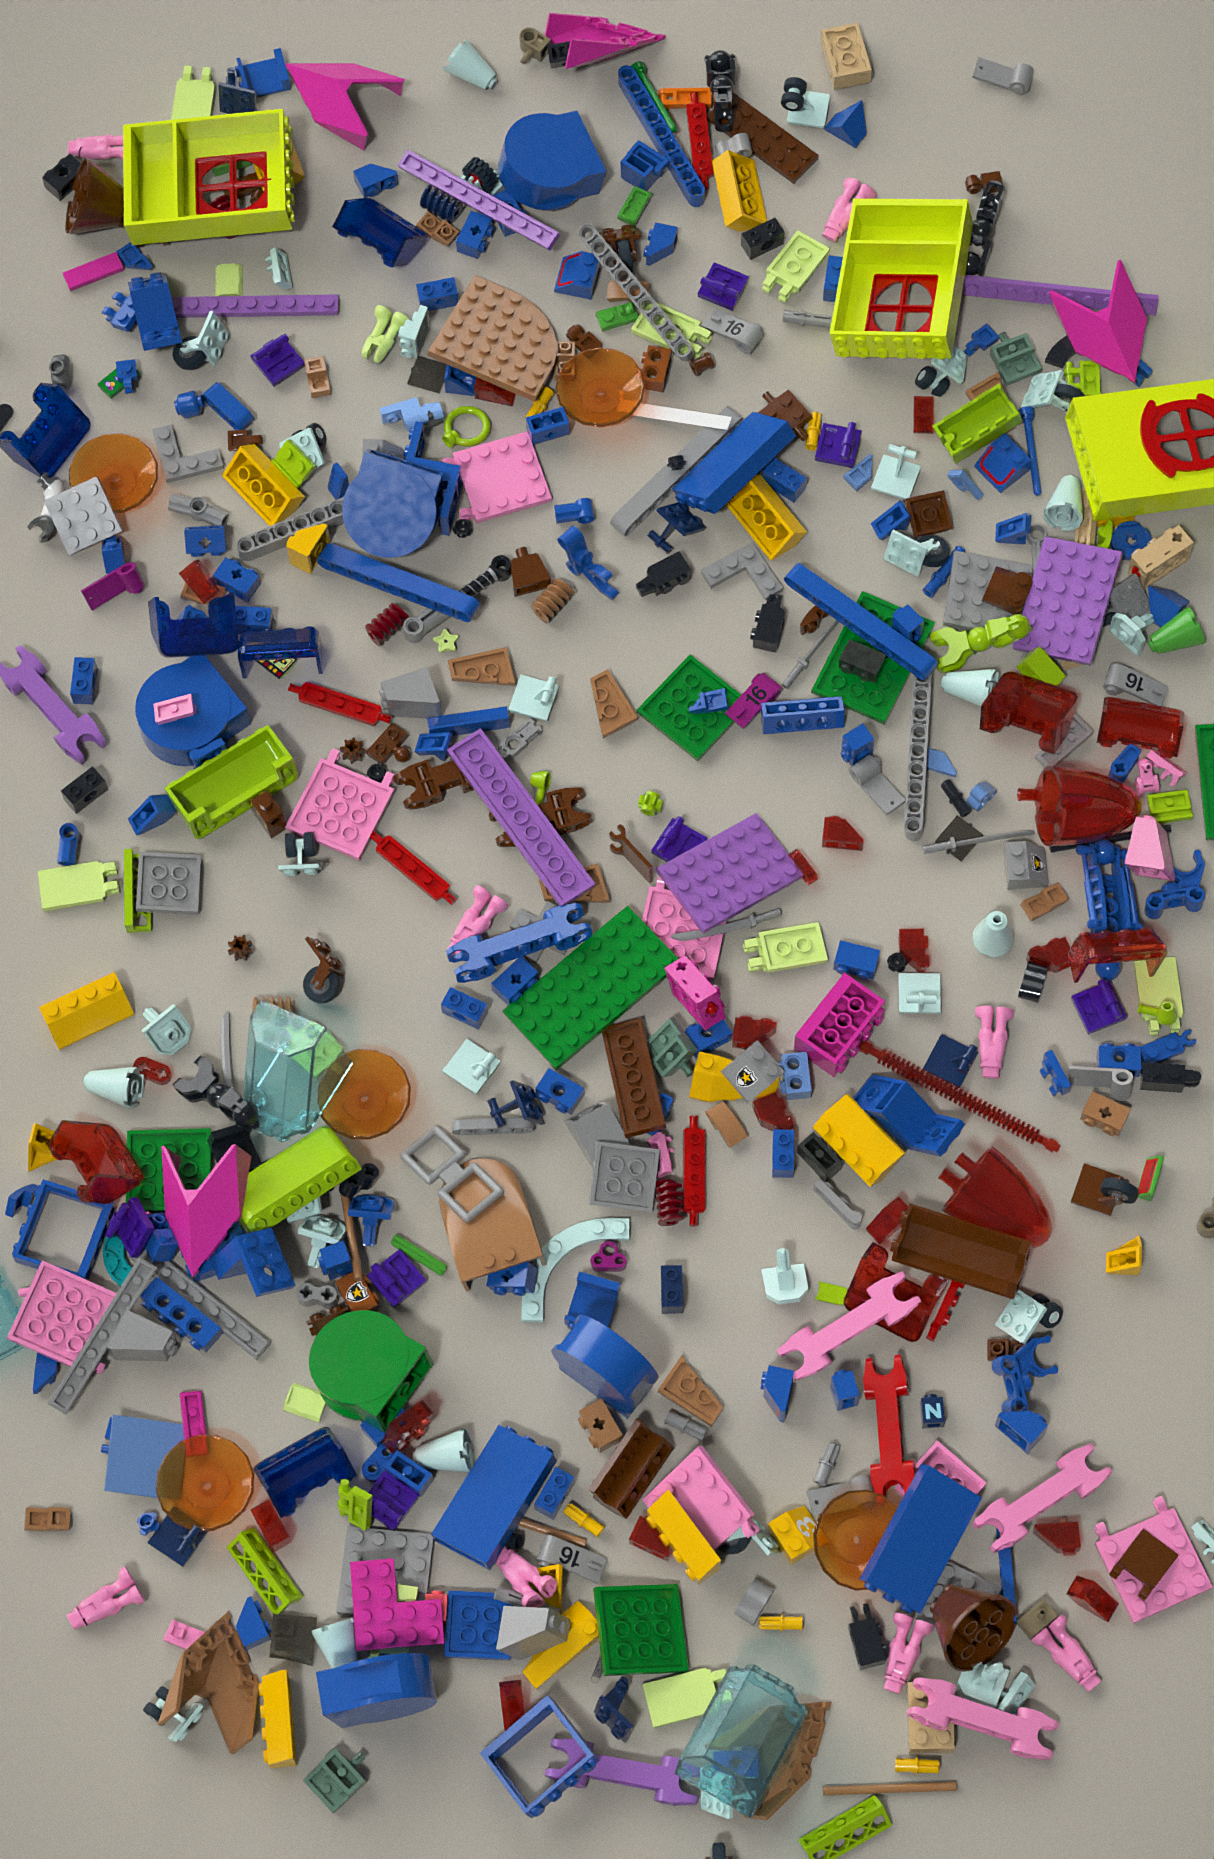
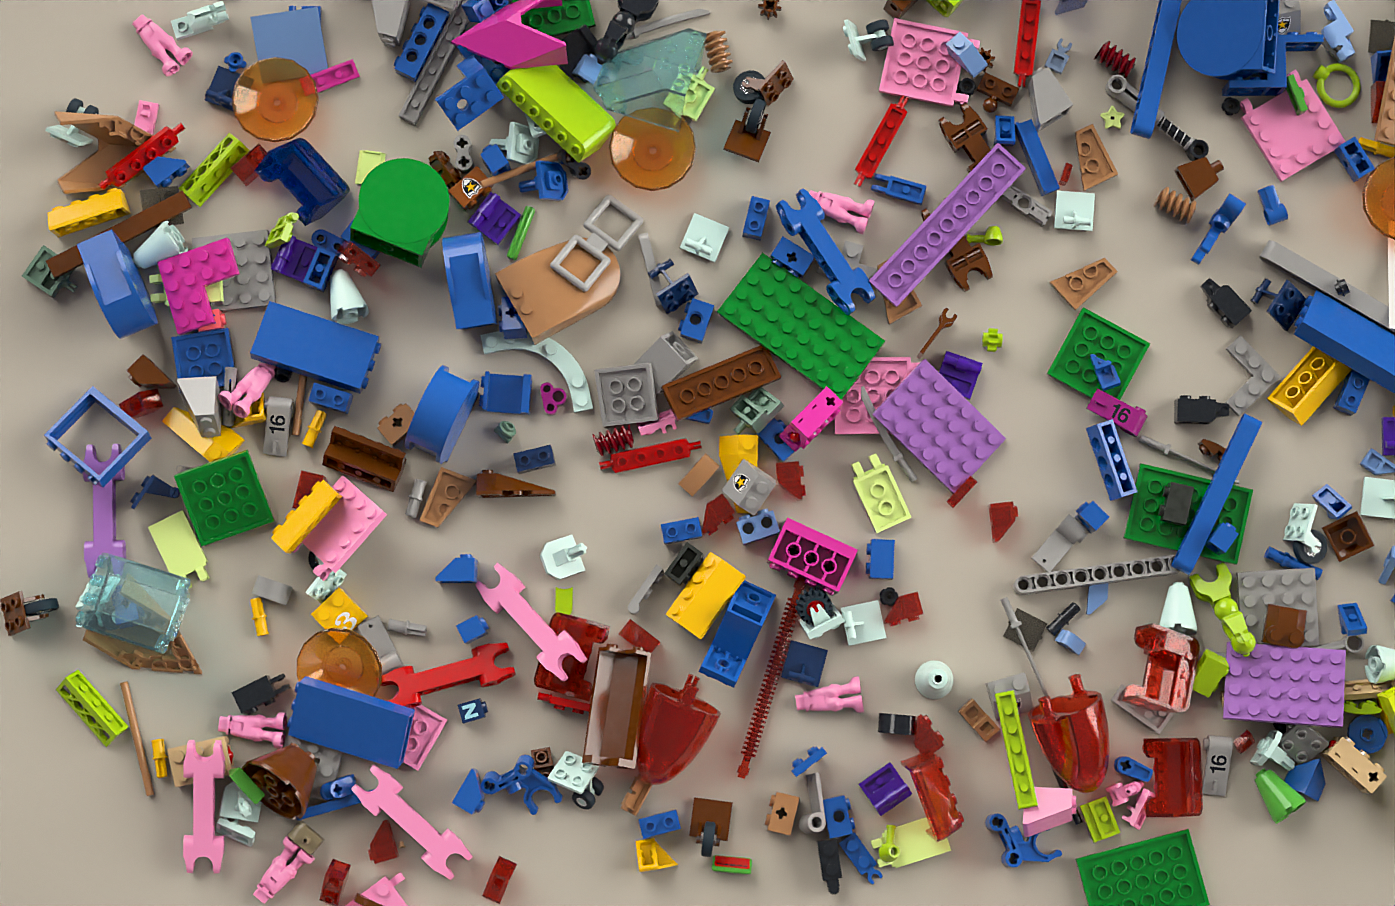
camera: 75 degrees right, 15 degrees up
(91, 1552) = (200, 20): none -> light aqua plate
(231, 1645) = (141, 156): none -> red plate
(260, 1144) = (587, 69): none -> medium blue slope
(308, 1664) = (125, 230): none -> reddish brown tile
(345, 760) = (966, 54): none -> medium blue slope
(369, 679) = (1058, 58): none -> sand blue plate
(373, 996) = (747, 139): none -> reddish brown plate
(466, 1305) = (469, 281): none -> blue brick
(468, 859) = (900, 189): none -> blue hinge
(471, 463) = (1296, 95): none -> bright green plate
(482, 1685) = (148, 374): none -> reddish brown slope
(493, 697) = (1065, 174): none -> clear red tile
(633, 1315) = (505, 430): none -> sand green plate
(692, 1331) = (501, 486): none -> reddish brown wedge
(902, 1031) = (817, 613): none -> plate
(967, 1665) = (246, 784): none -> bright green slope
(989, 1568) = (338, 788): none -> blue piece
(1057, 1258) = (634, 800): none -> medium nougat hinge
(1085, 862) = (1016, 750): none -> lime tile
(1092, 1241) = (659, 823): none -> blue brick
(1116, 654) = (1243, 742): none -> clear red tile
(1121, 907) = (992, 766): blue piece -> none
(1122, 1420) = (499, 879): none -> clear red slope

